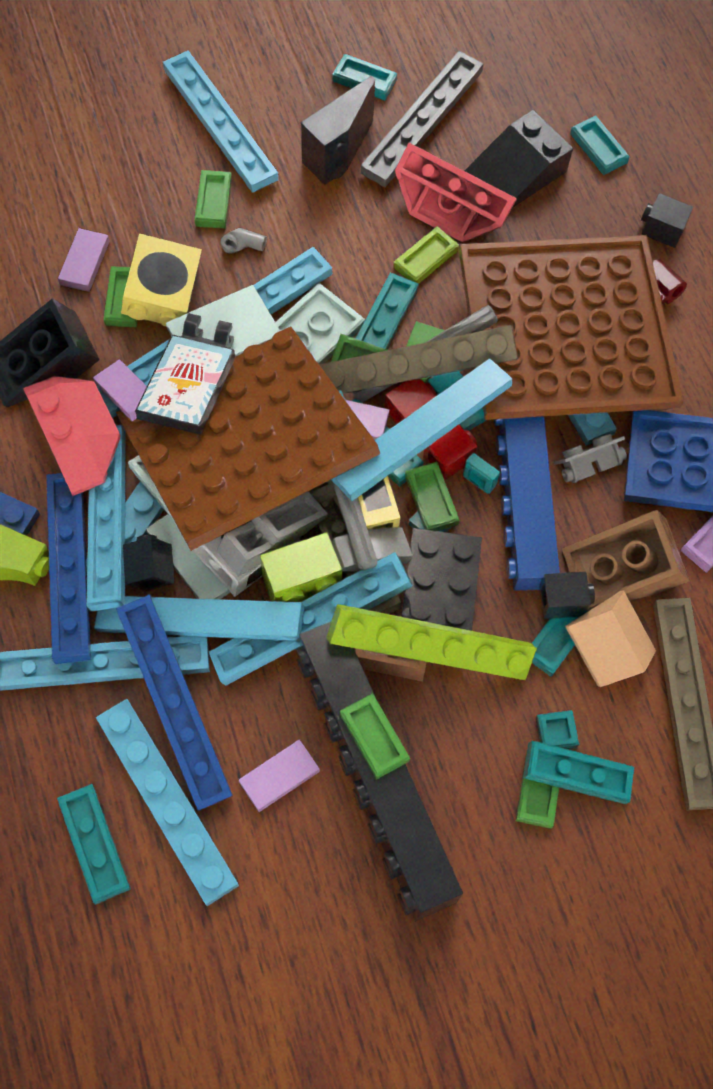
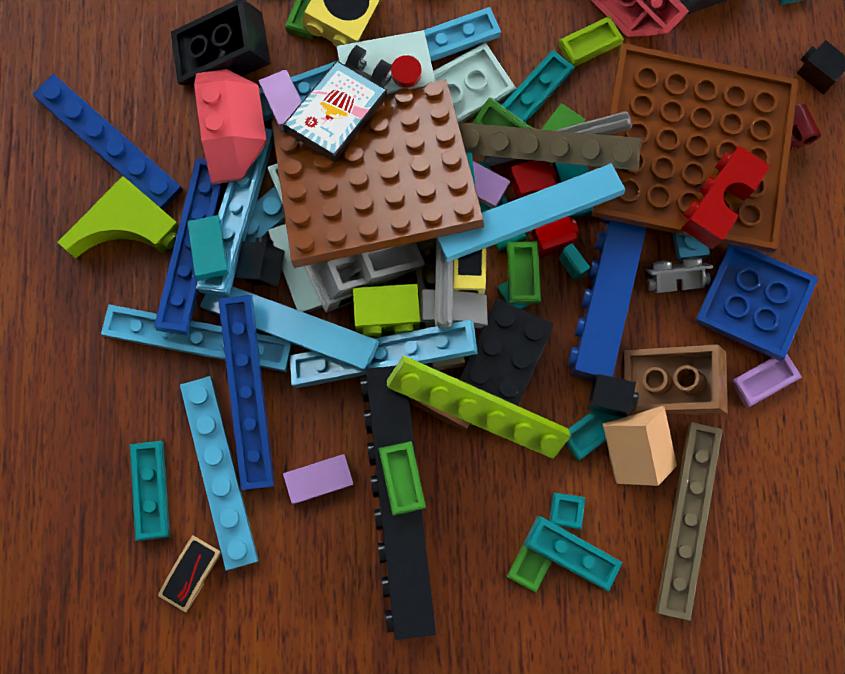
camera: 15 degrees right, 10 degrees up
(88, 559) = (208, 247): none -> teal tile
(165, 921) = (189, 573): none -> black slope
(247, 328) = (406, 71): none -> red tile
(607, 386) = (710, 217): none -> red arch

